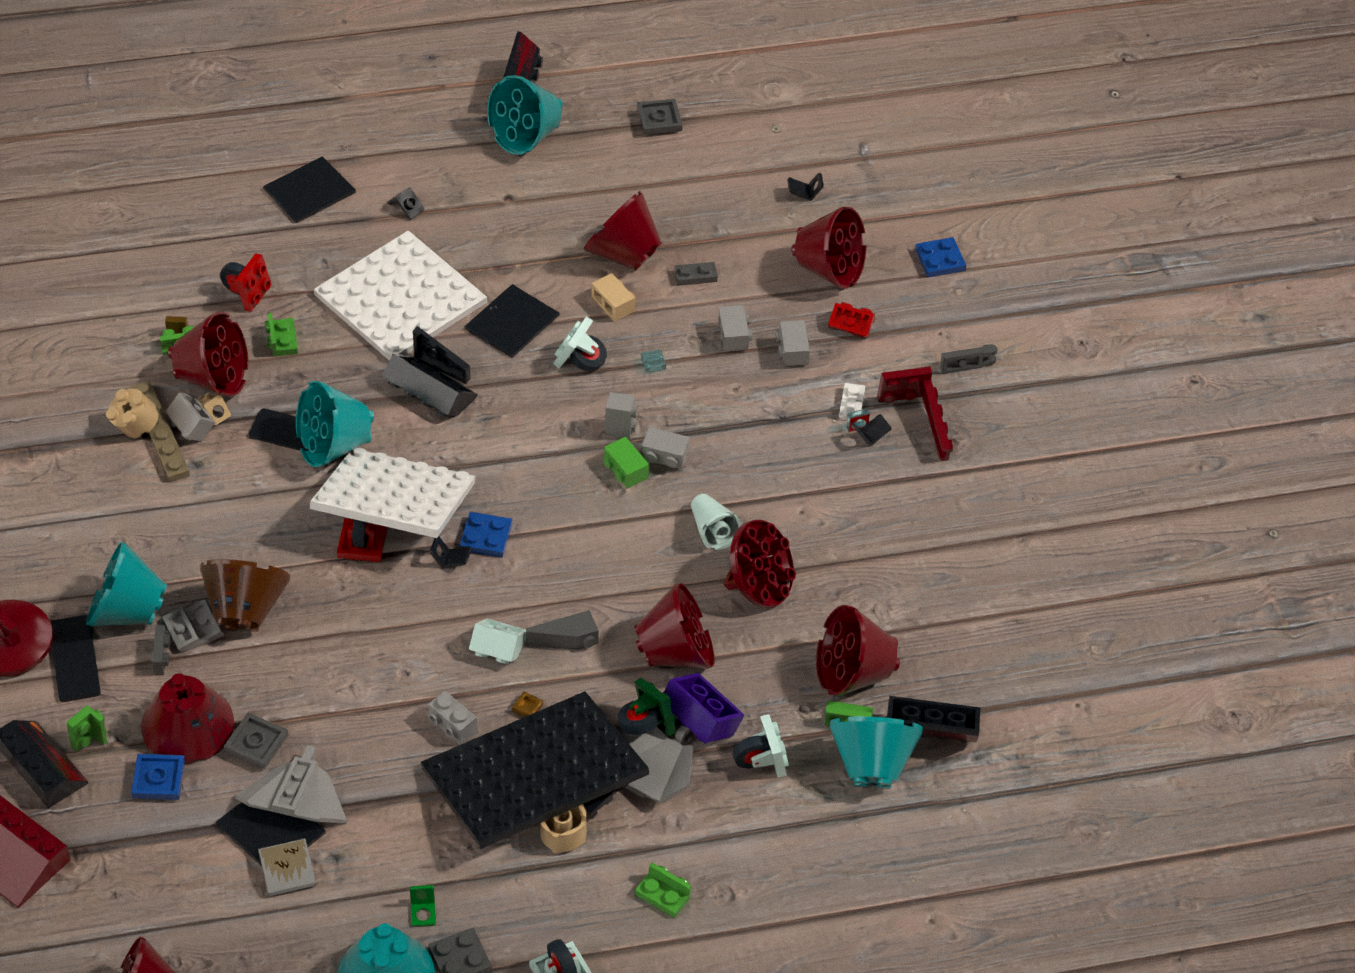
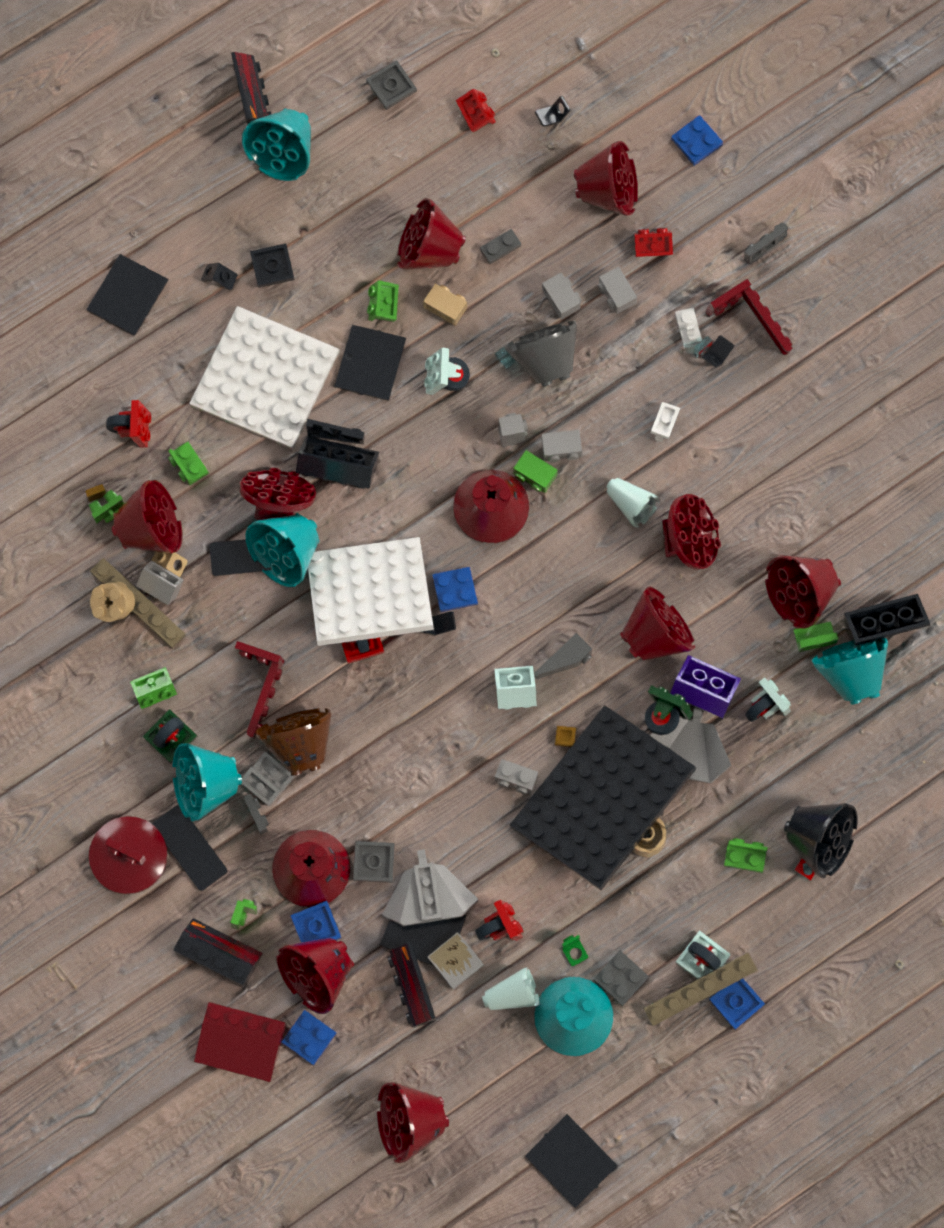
camera: 20 degrees left, 25 degrees up
(86, 880) = (309, 1037): none -> blue plate
(108, 539) = (168, 734): none -> dark green plate
(127, 505) = (153, 688): none -> bright green bracket
(129, 806) = (315, 971): none -> dark red cone
(226, 868) = (412, 985): none -> black slope
(257, 527) = (268, 690): none -> dark red bracket
(331, 918) = (512, 992): none -> light aqua cone
(352, 380) = (276, 494): none -> dark red bracket
(355, 845) = (500, 924): none -> red plate
(461, 211) = (272, 265): none -> black plate
(554, 274) = (383, 301): none -> bright green bracket
(564, 474) = (491, 506): none -> dark red cone
(691, 358) = (546, 352): none -> dark grey cone
(728, 930) = (804, 870): none -> tile
(731, 160) = (475, 109): none -> red bracket
(762, 895) = (822, 835): none -> black cone
(784, 467) = (665, 421): none -> white plate

